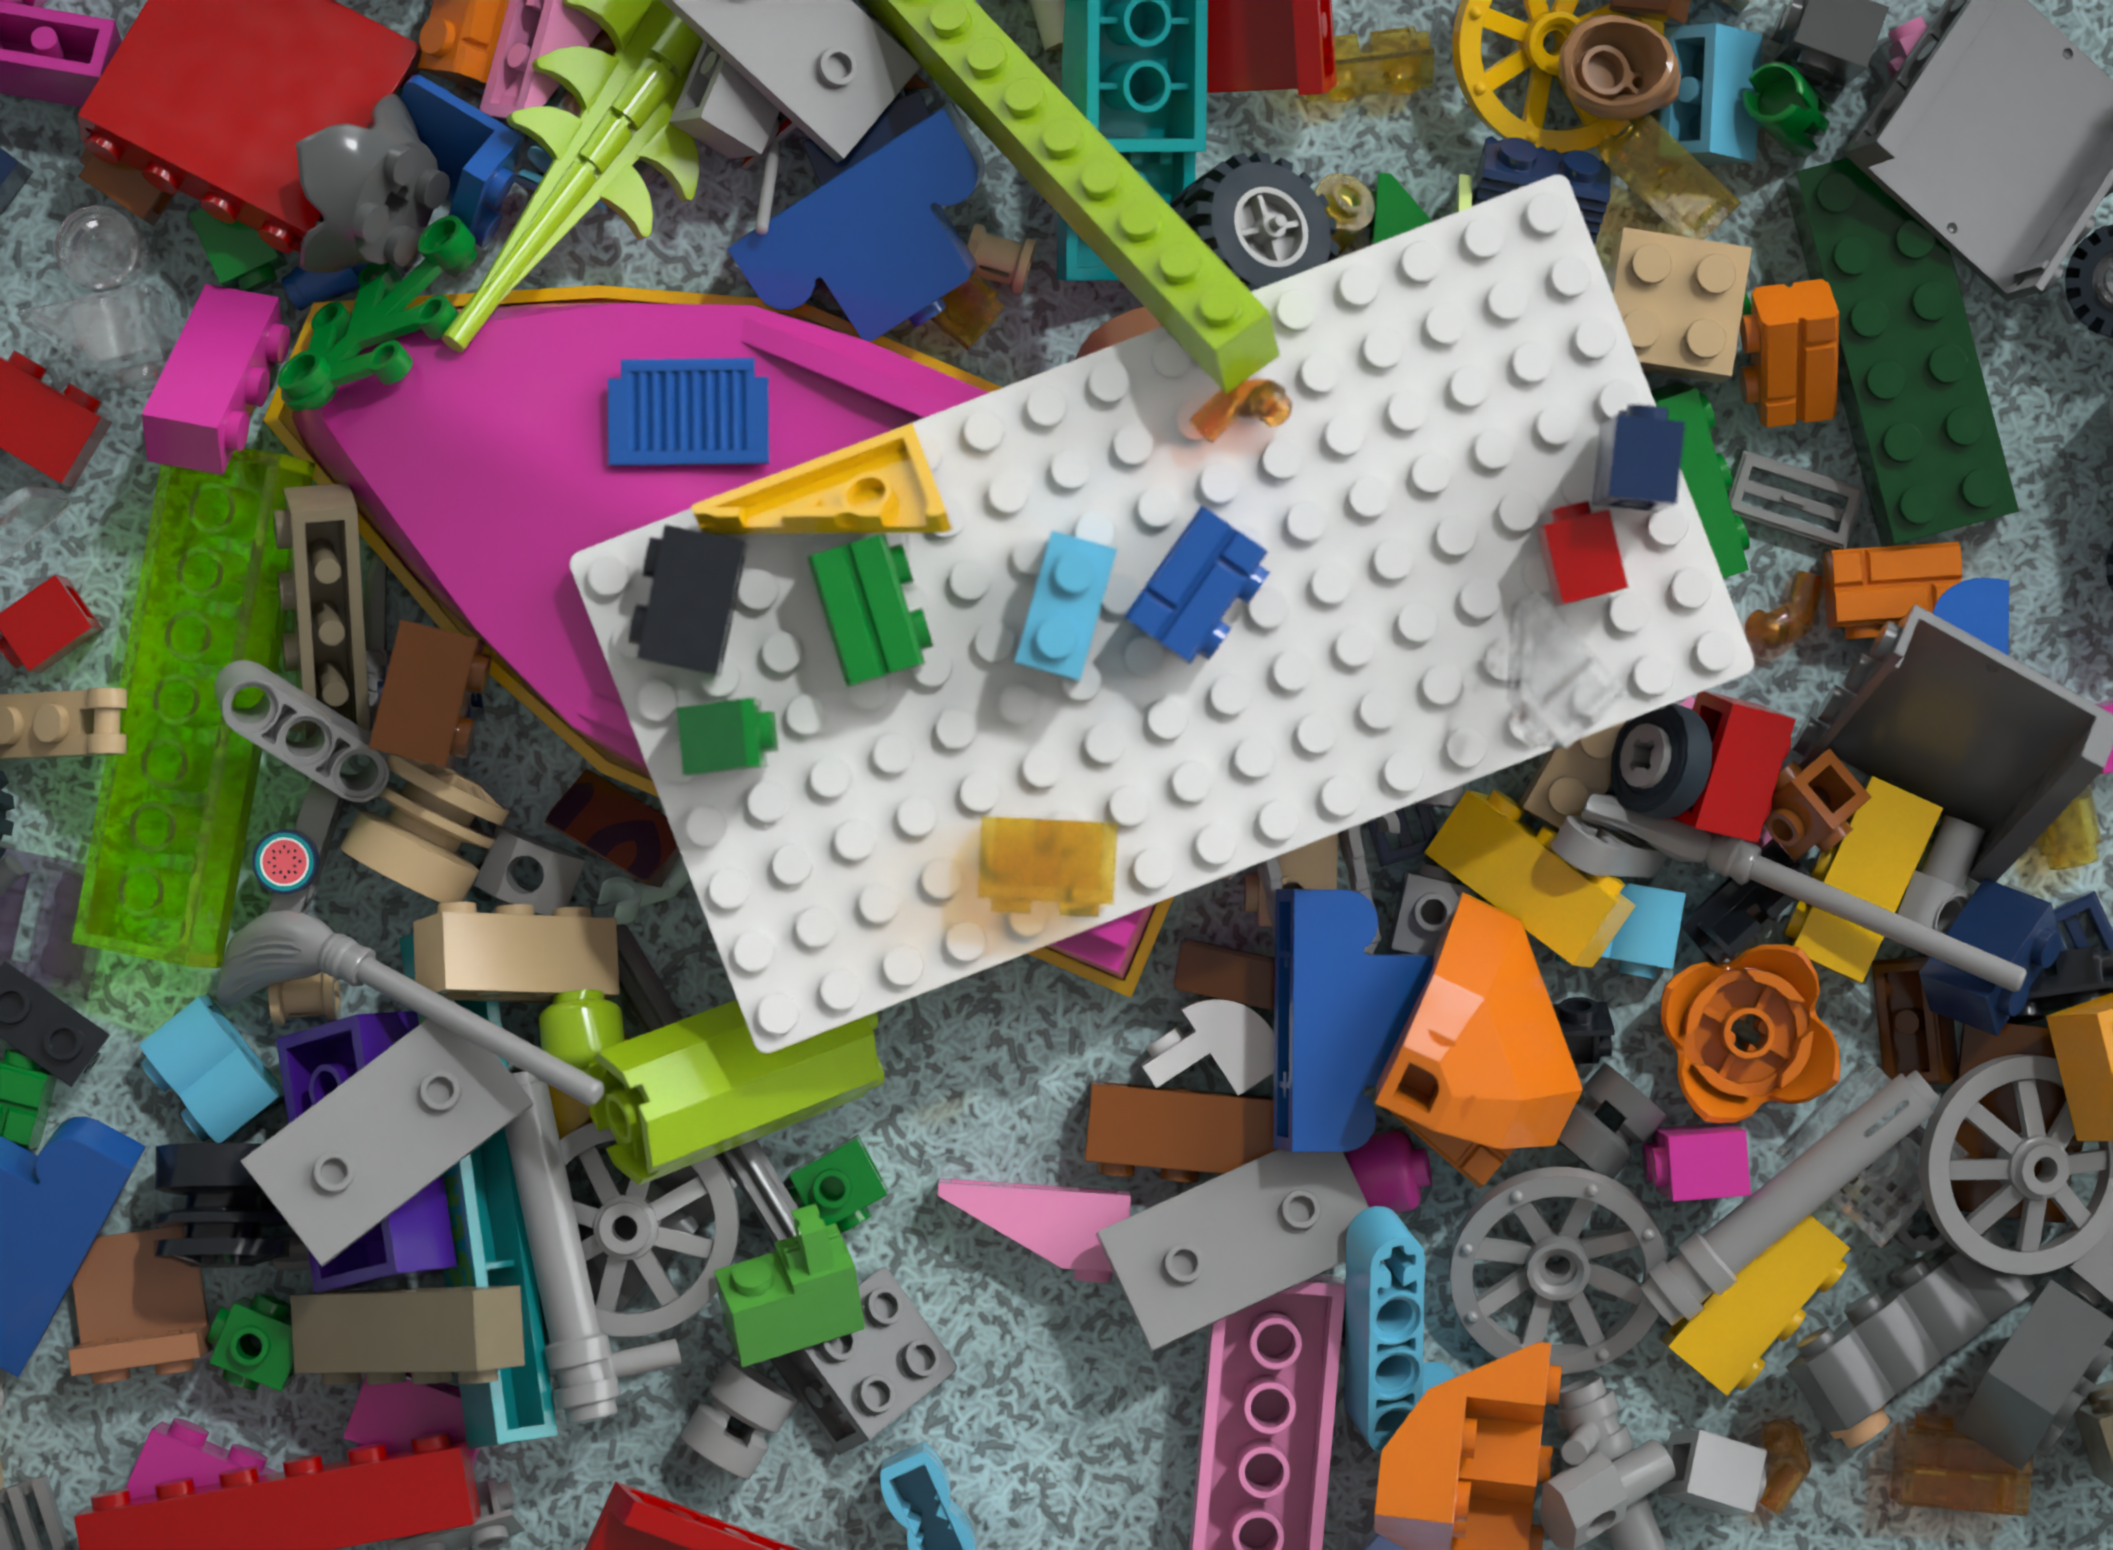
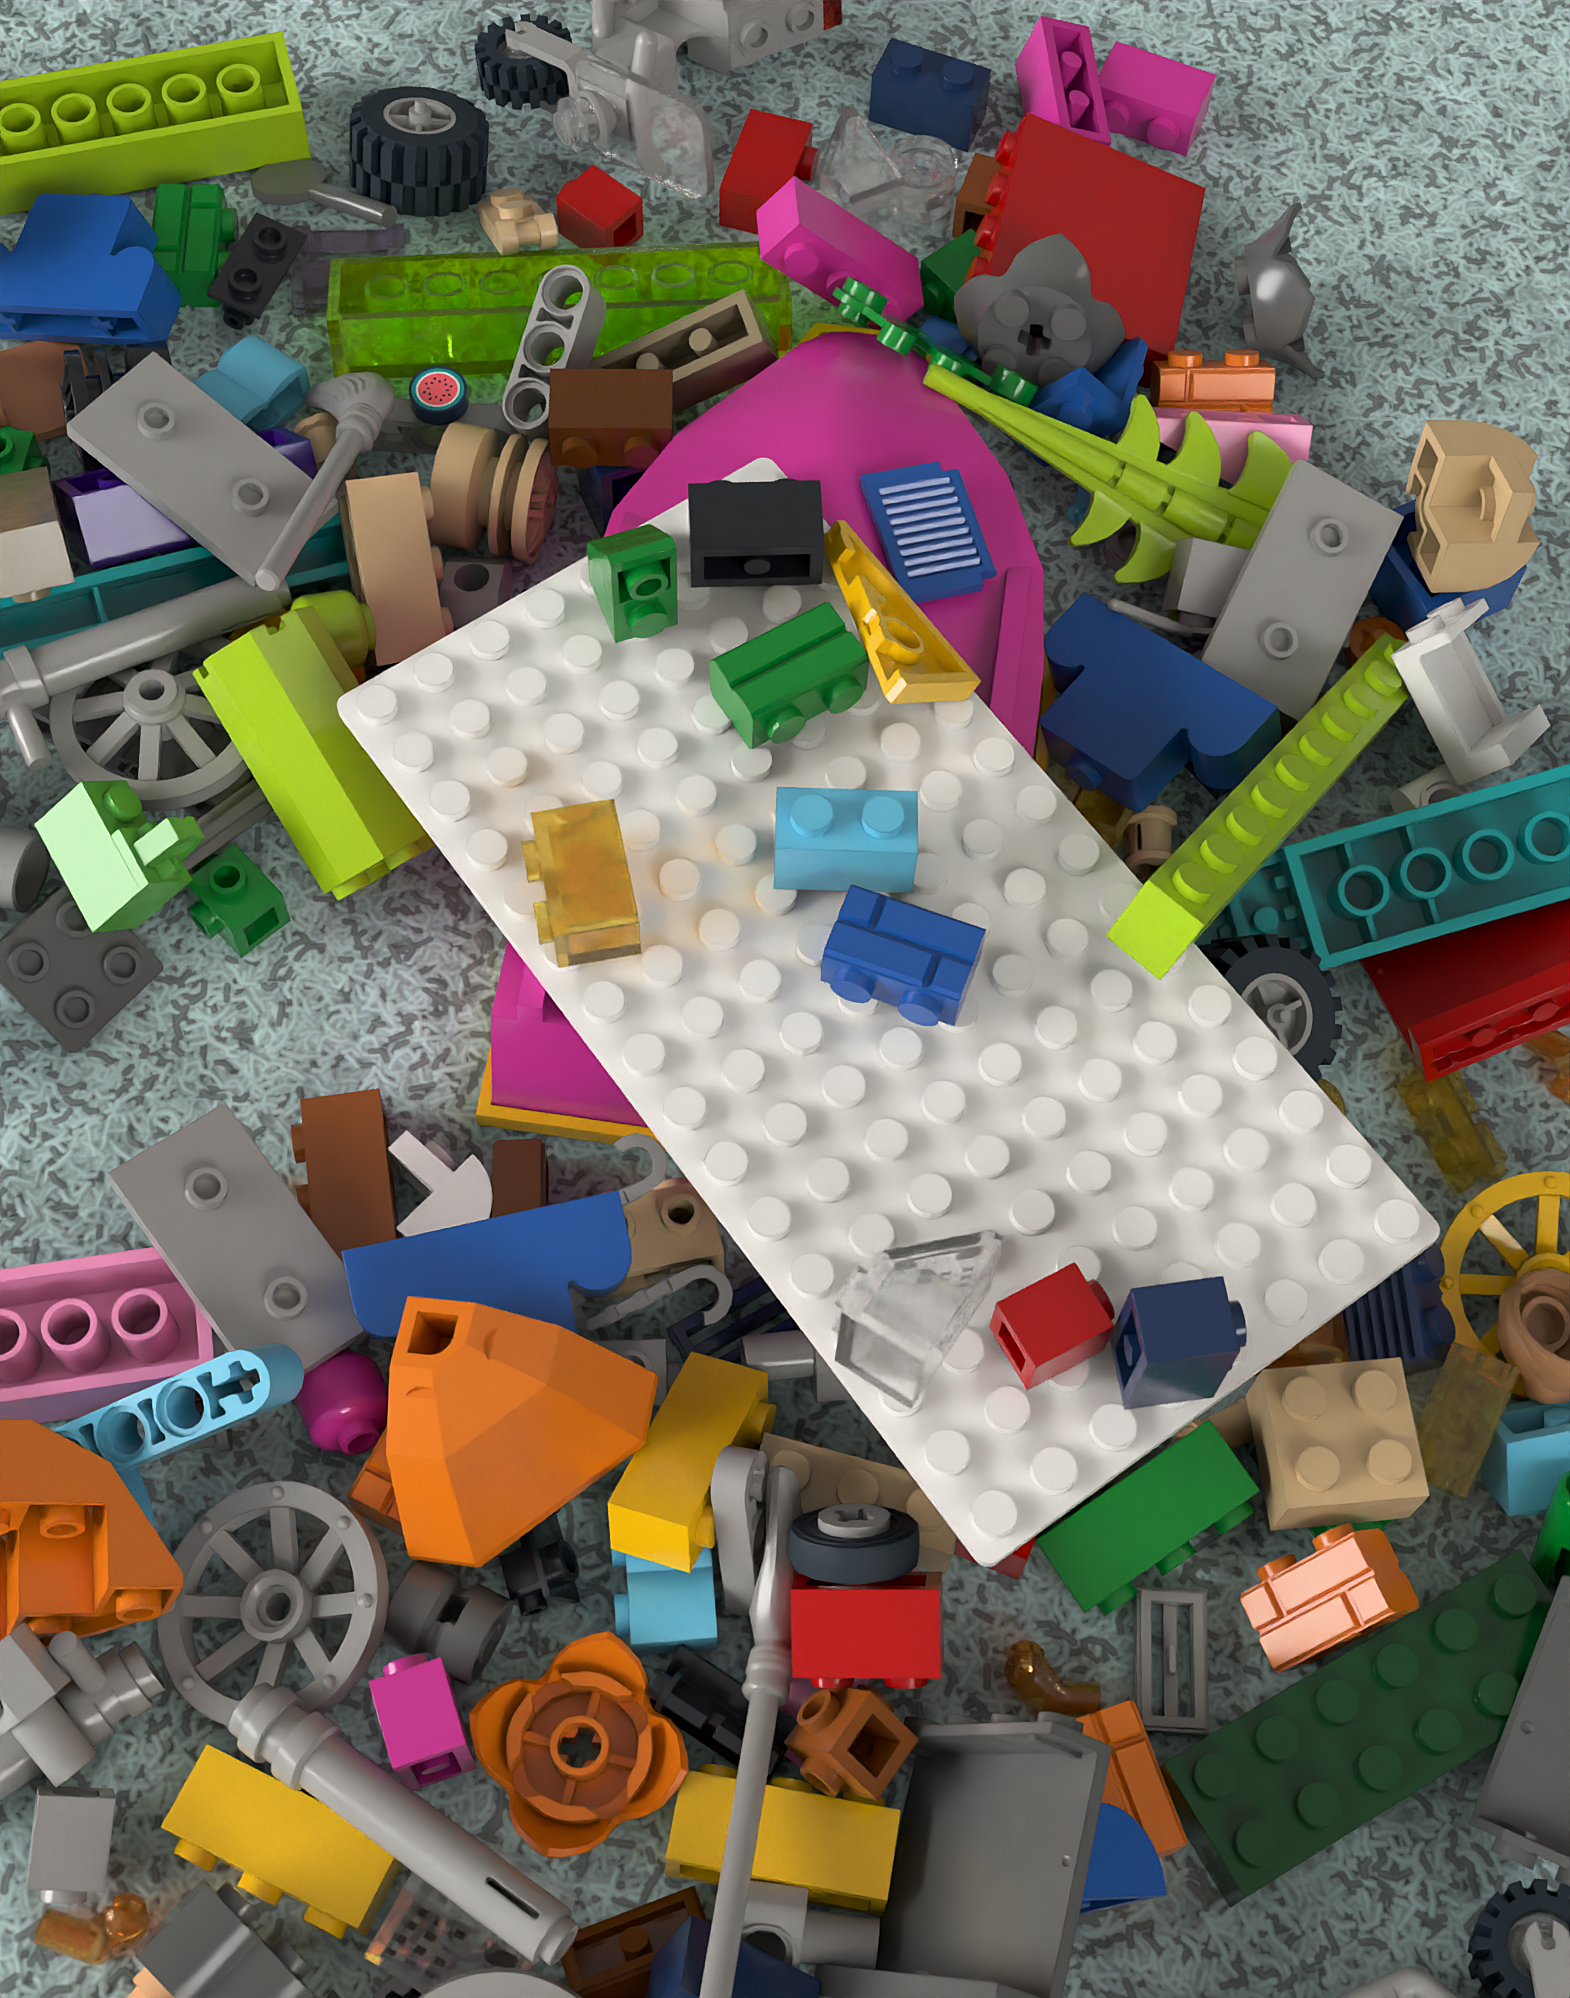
camera: 70 degrees right, 25 degrees down
(1046, 1219) = (239, 1071): bright pink slope -> none
(1250, 399) = (1101, 958): clear orange arm -> none

